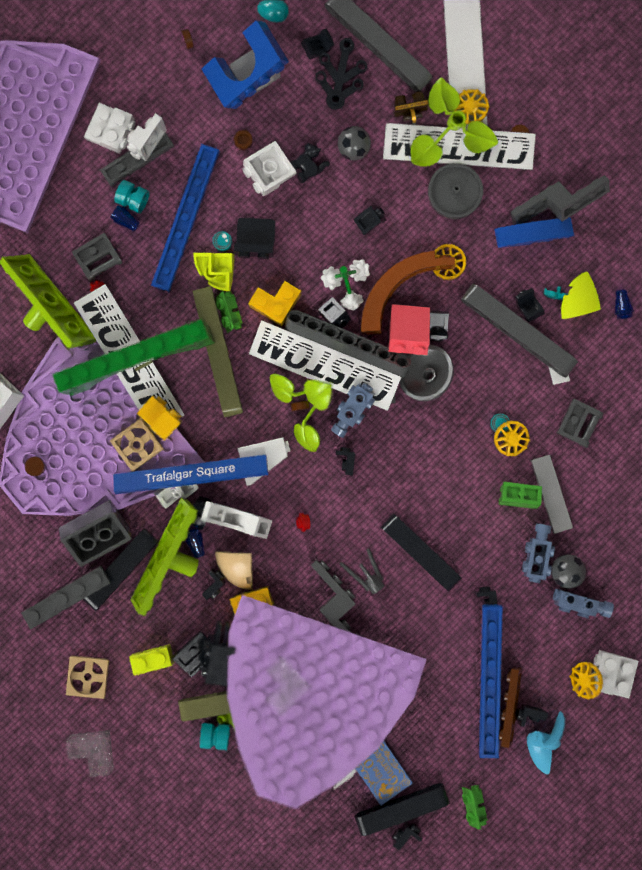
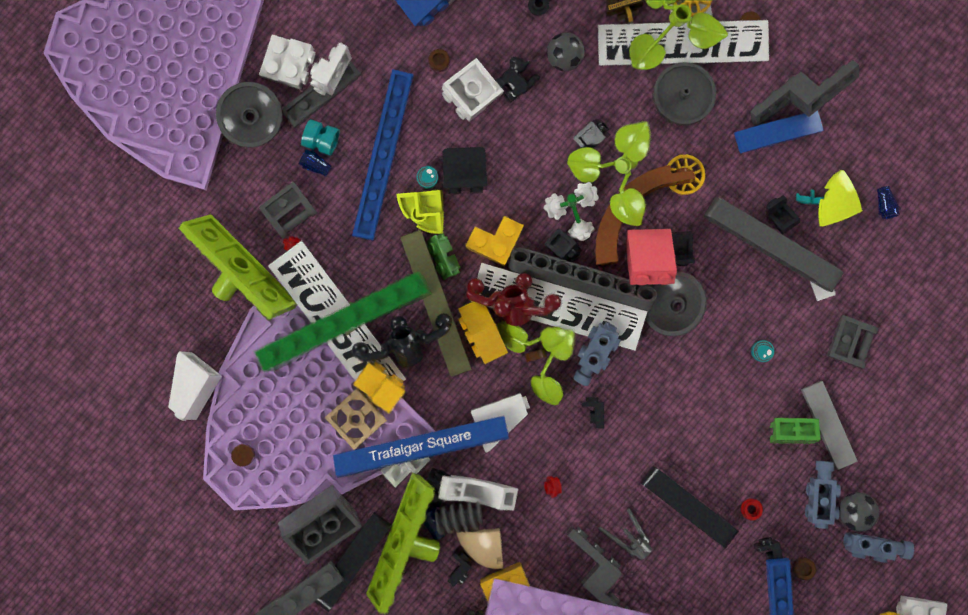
camera: 10 degrees left, 0 degrees up
(68, 157) = (249, 99): none -> dark grey dish
(185, 382) = (404, 342): none -> black wheel
(217, 541) = (459, 518): none -> dark grey piece
(254, 380) = (481, 332): none -> yellow brick
(284, 355) = (513, 300): none -> dark red wheel
(403, 227) = (634, 143): none -> lime plant
(480, 564) = (757, 511): none -> red plate
(511, 438) = (777, 367): yellow wheel -> none
(516, 617) = (804, 568): none -> reddish brown tile

